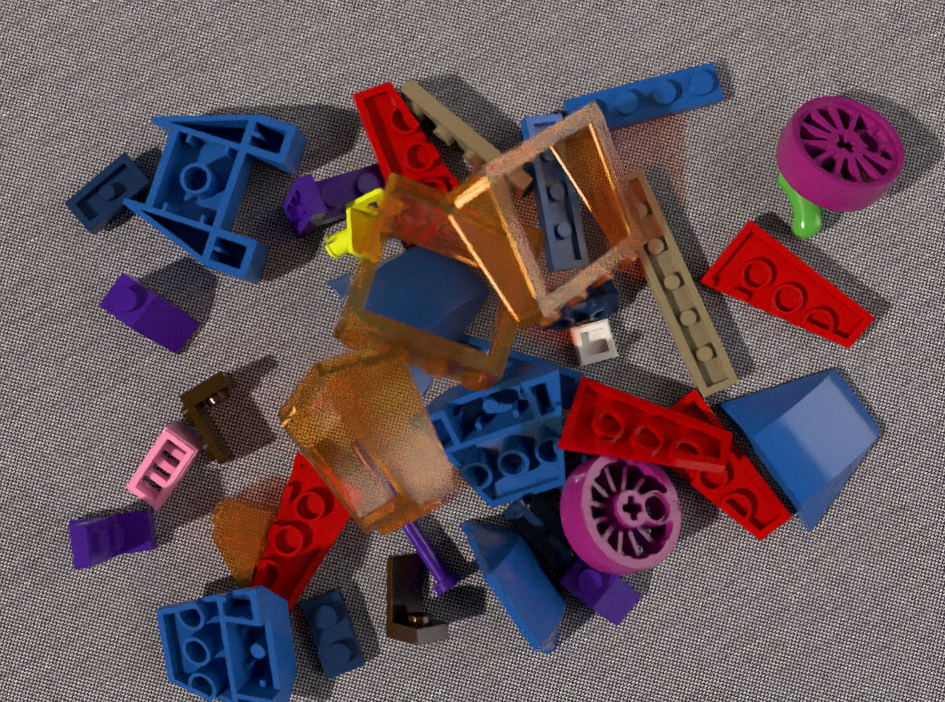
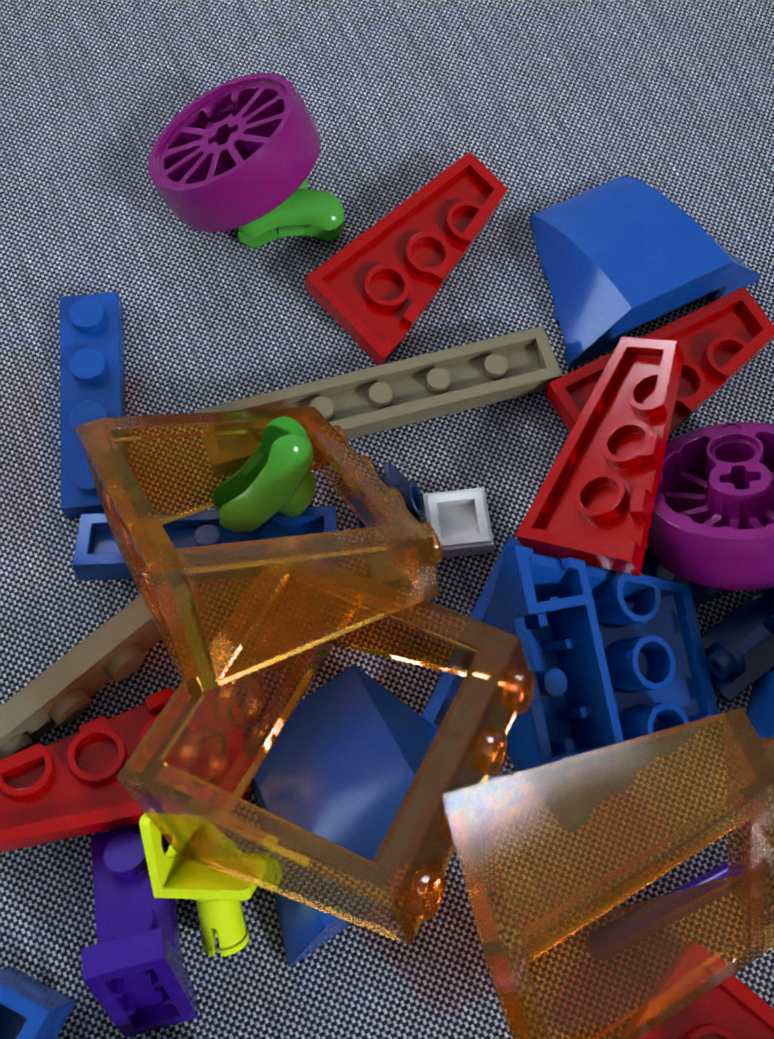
camera: 80 degrees left, 20 degrees down
(592, 221) = (270, 480): none -> bright green piece

